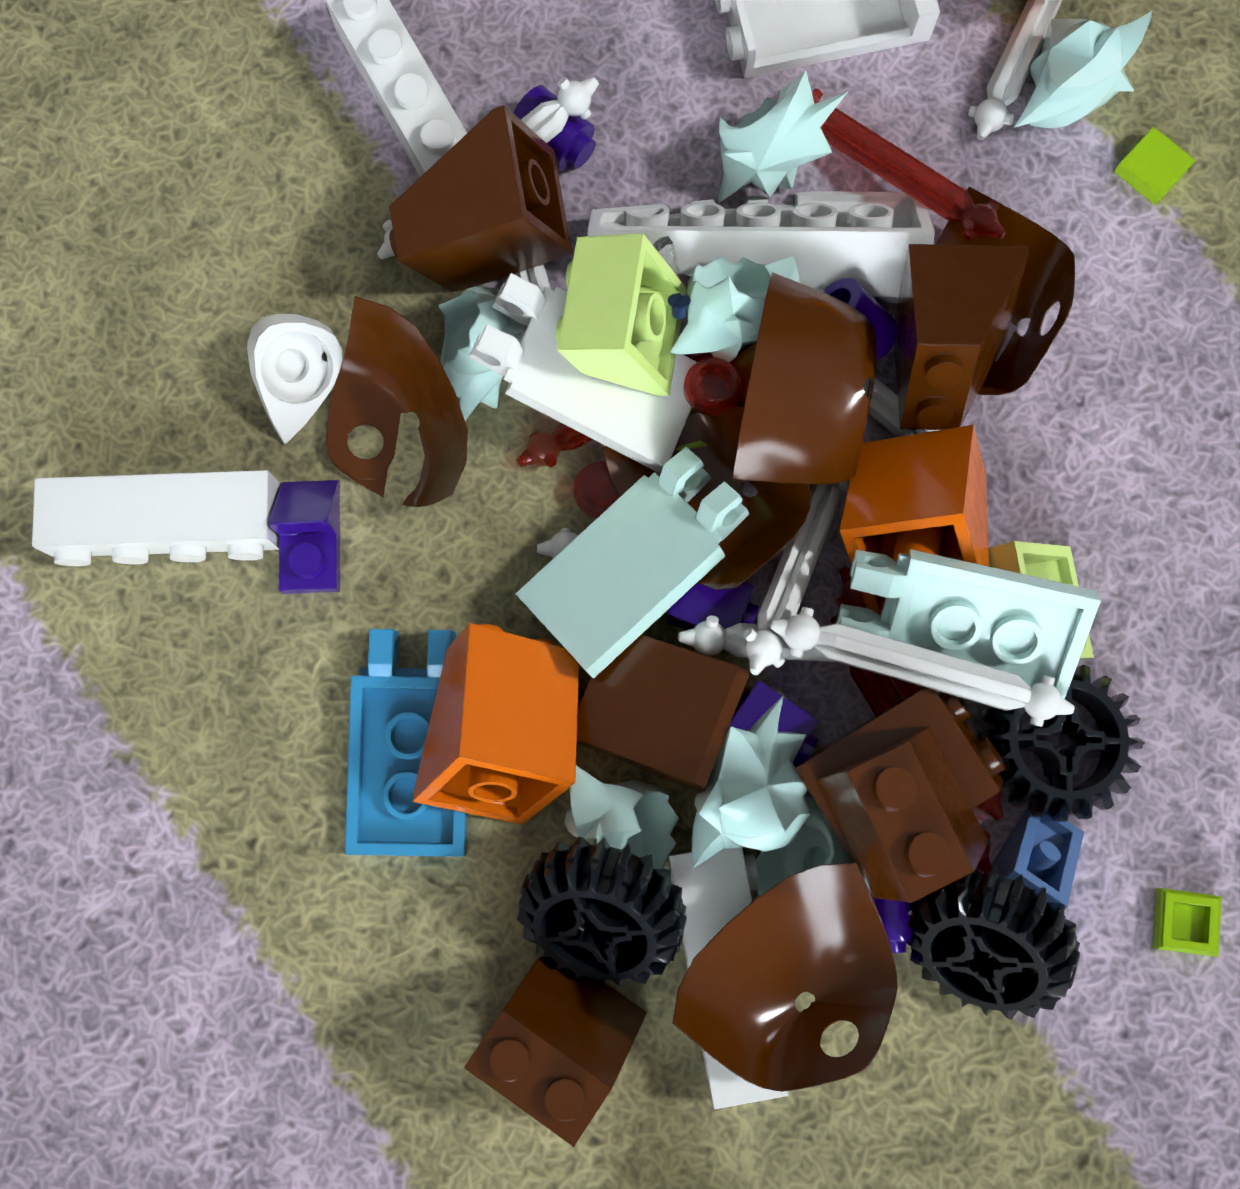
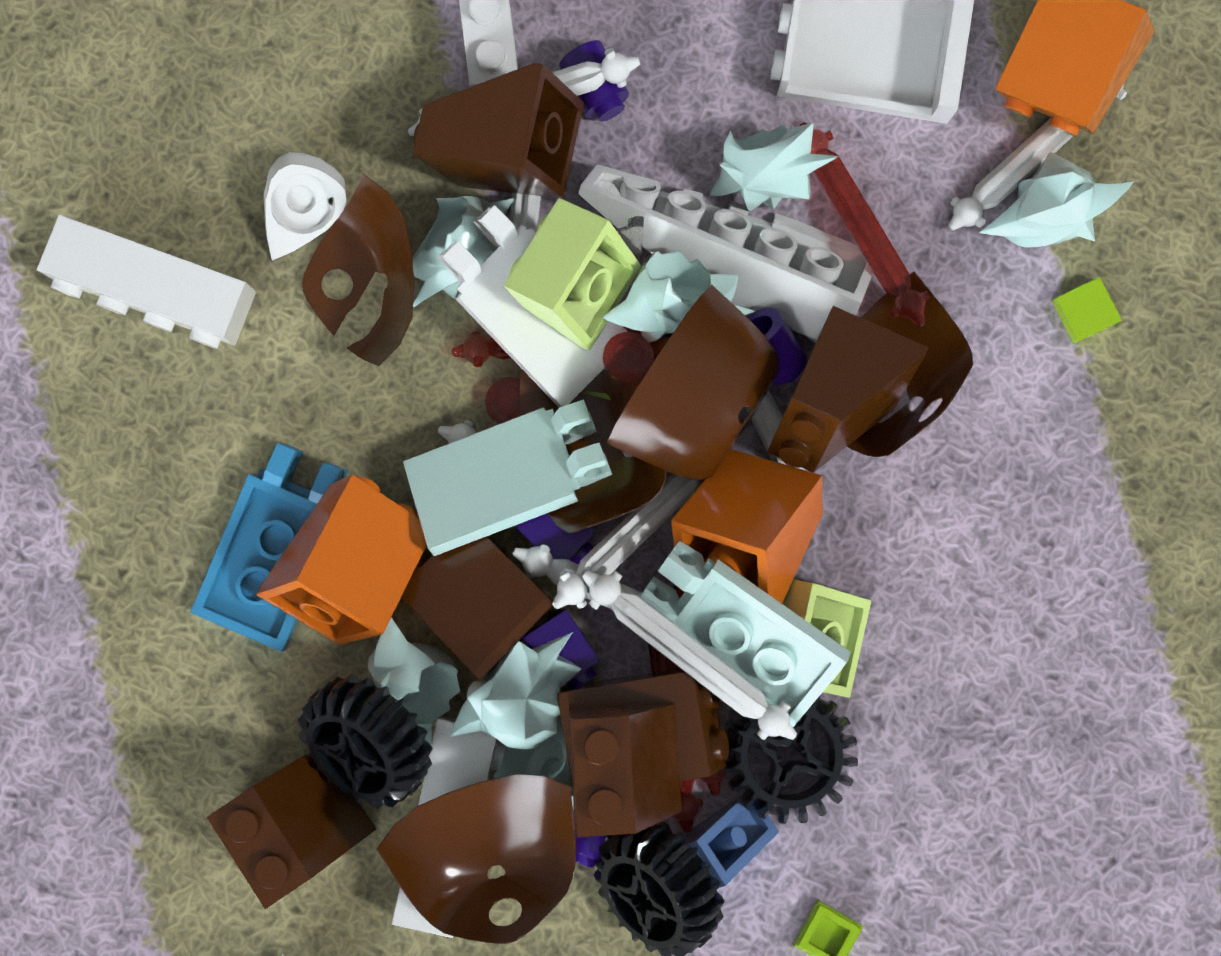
camera: 20 degrees right, 5 degrees up
(309, 536) = (261, 344): dark purple slope -> none
(679, 305) = (624, 281): dark blue piece -> none

